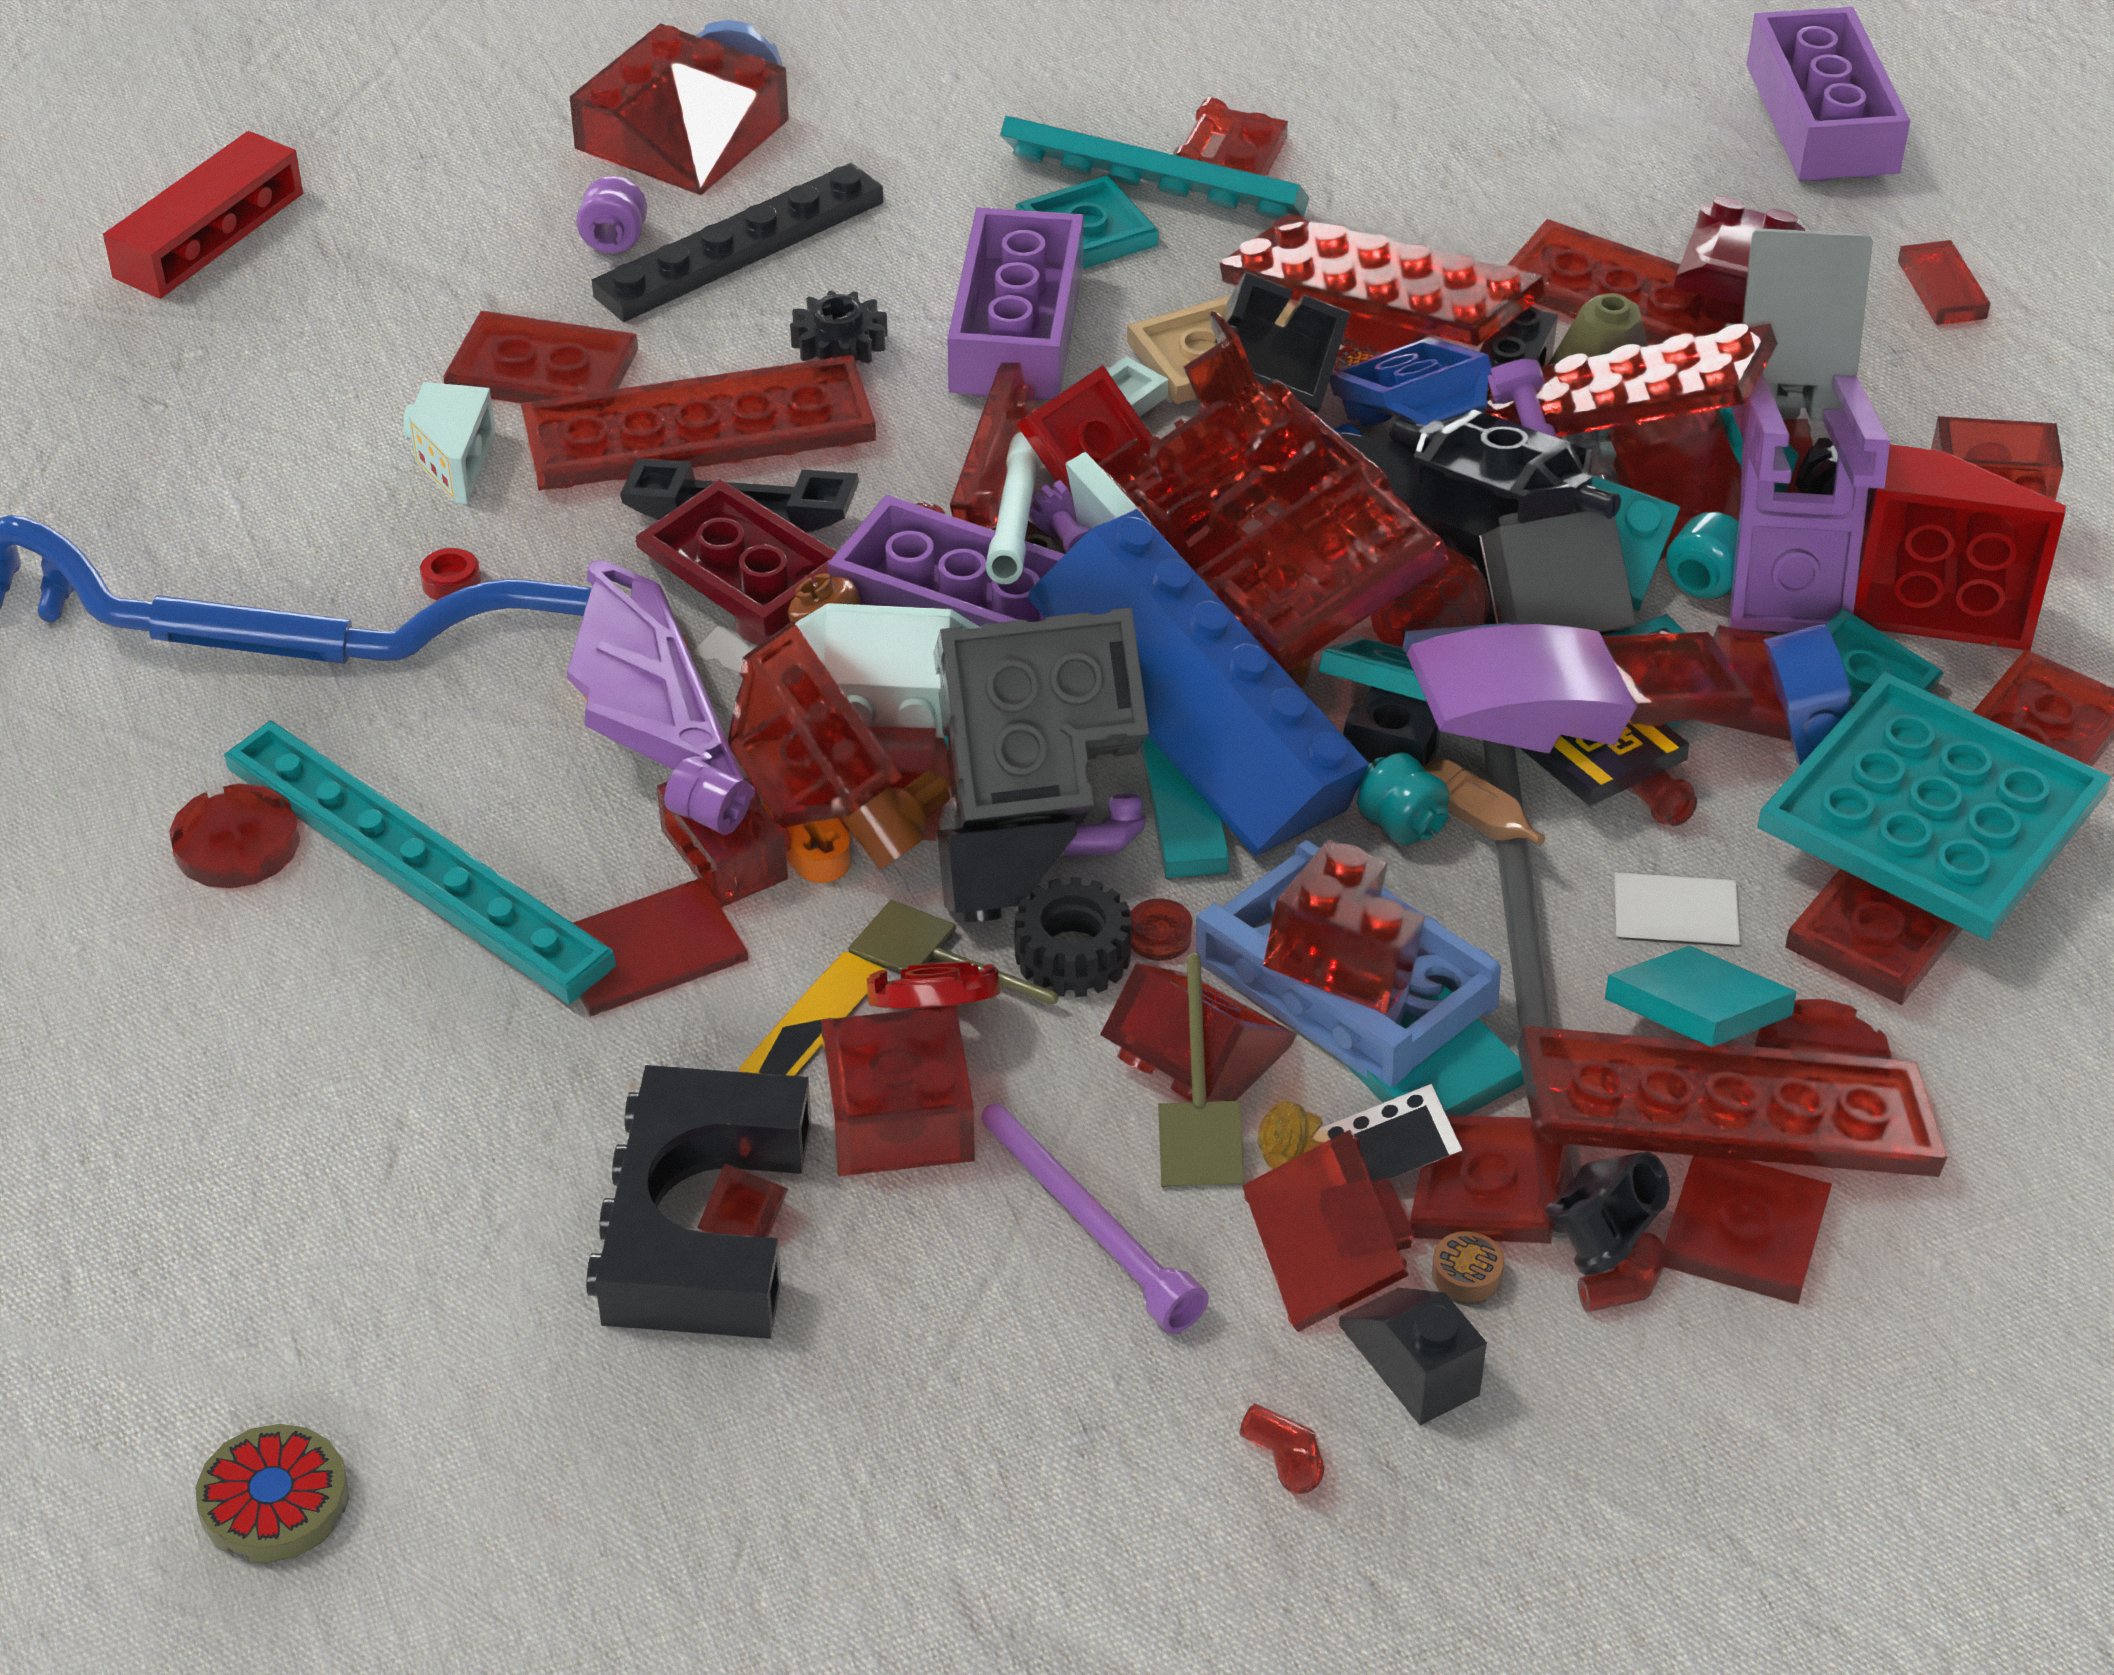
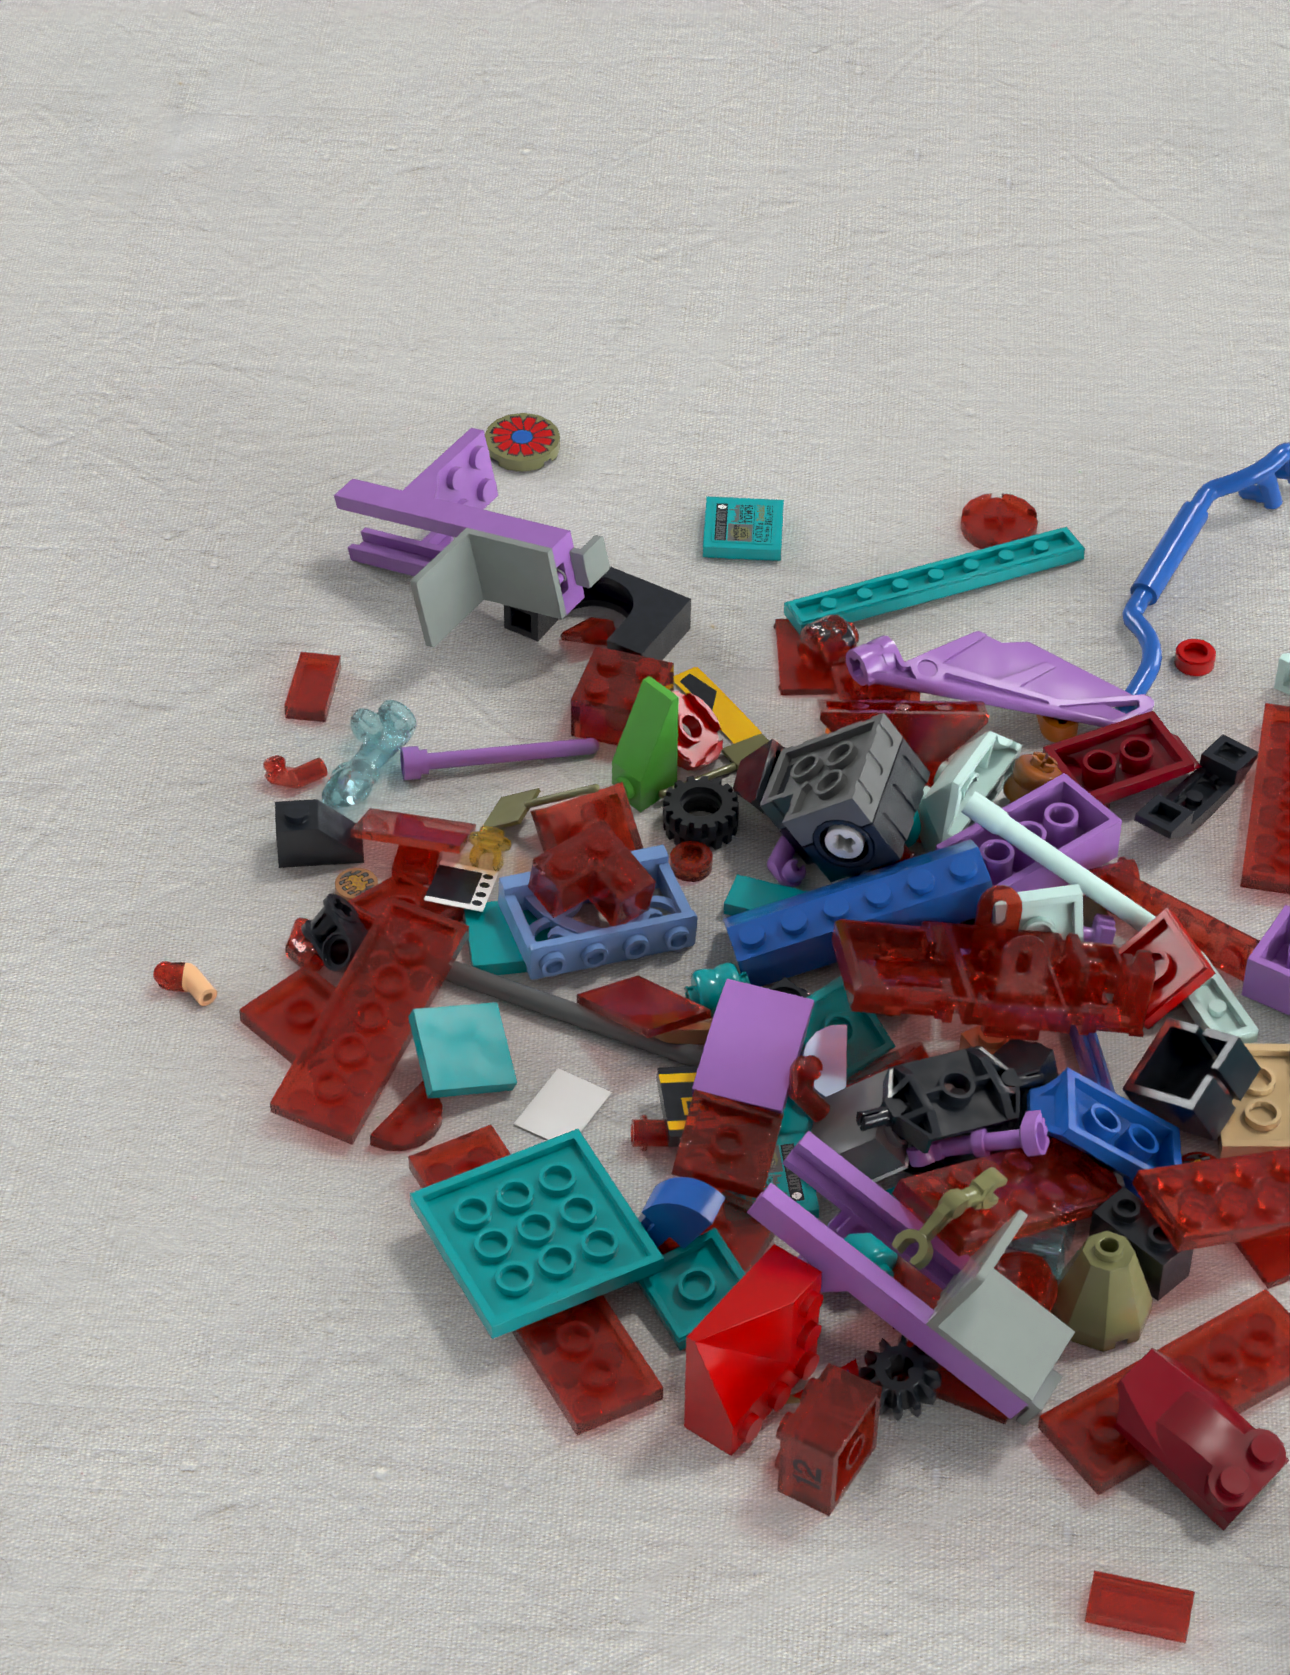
camera: 115 degrees right, 0 degrees up
(385, 1114) = (743, 528): none -> teal tile
(645, 903) = (826, 642): none -> clear red head
(694, 1416) = (492, 553): none -> piece
(1033, 980) = (648, 746): none -> bright green slope
(1070, 1519) = (313, 687): none -> clear red tile
(1255, 1363) = (380, 740): none -> clear light blue piece
(1489, 850) = (643, 1006): none -> clear red piece
(1544, 606) = (801, 1086): none -> clear red arm
(1786, 1385) = (184, 978): none -> arm
(1801, 361) = (951, 1205): none -> olive piece

